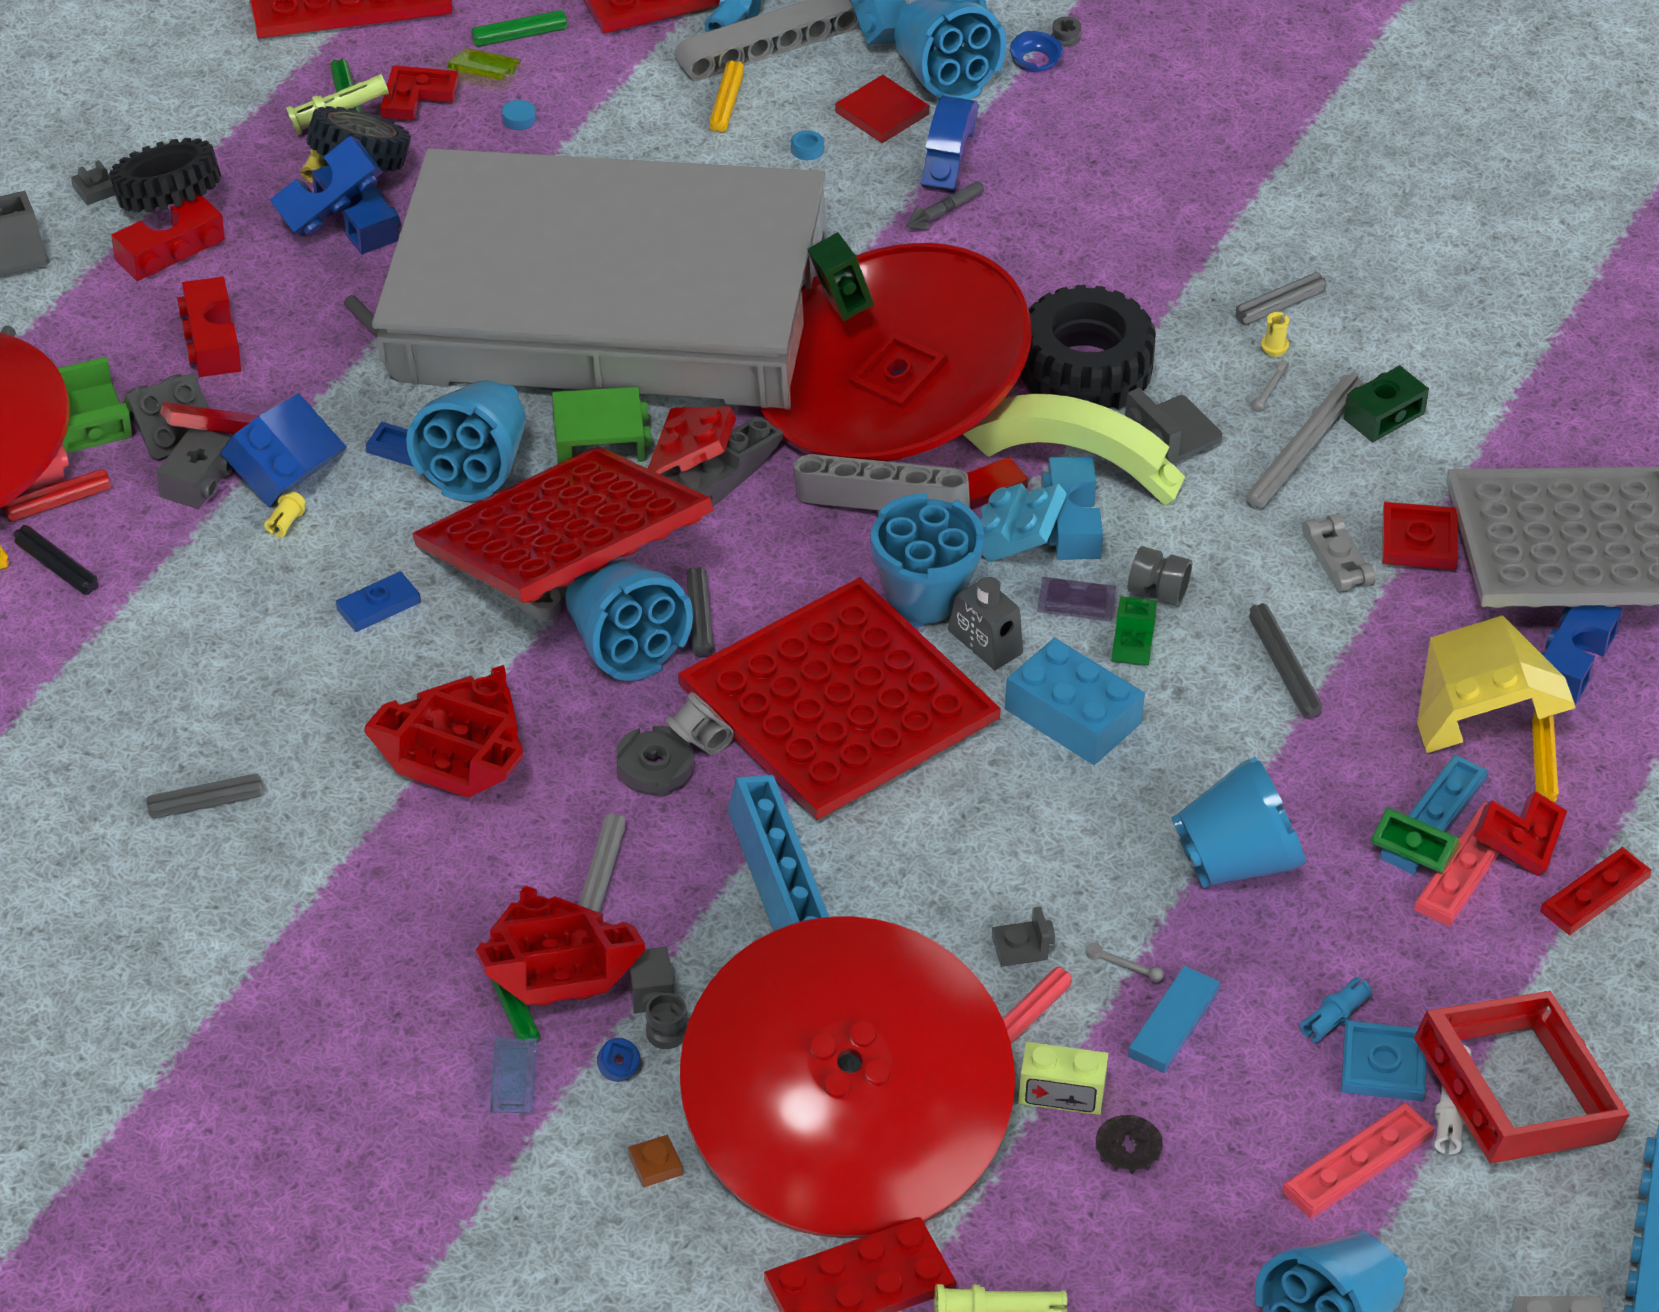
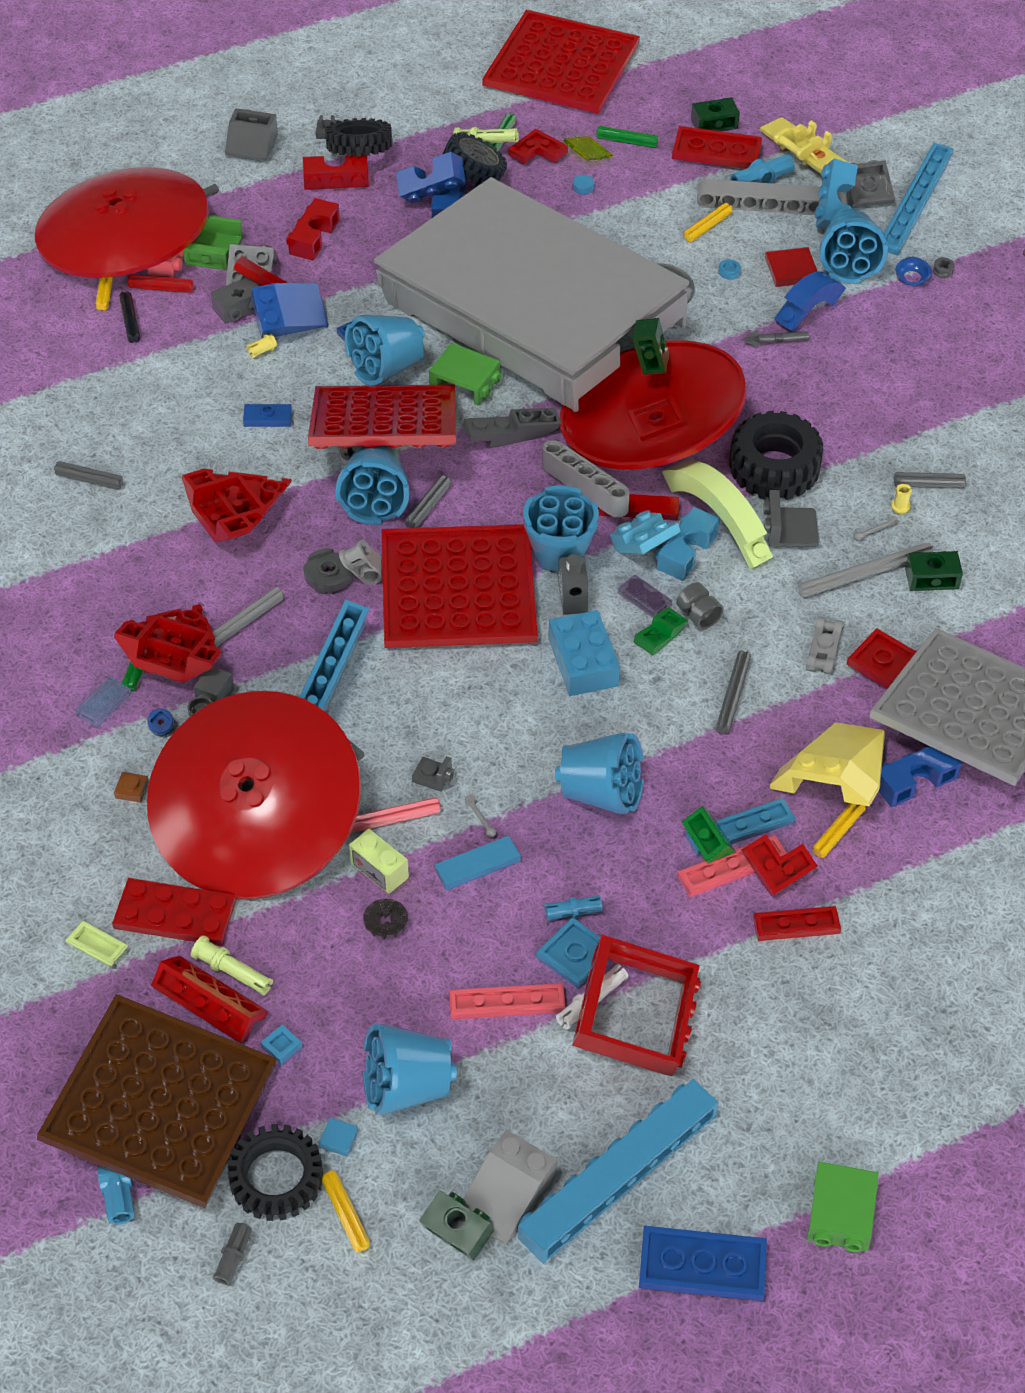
camera: 35 degrees right, 5 degrees up
(692, 437) = (499, 403): red wing -> none

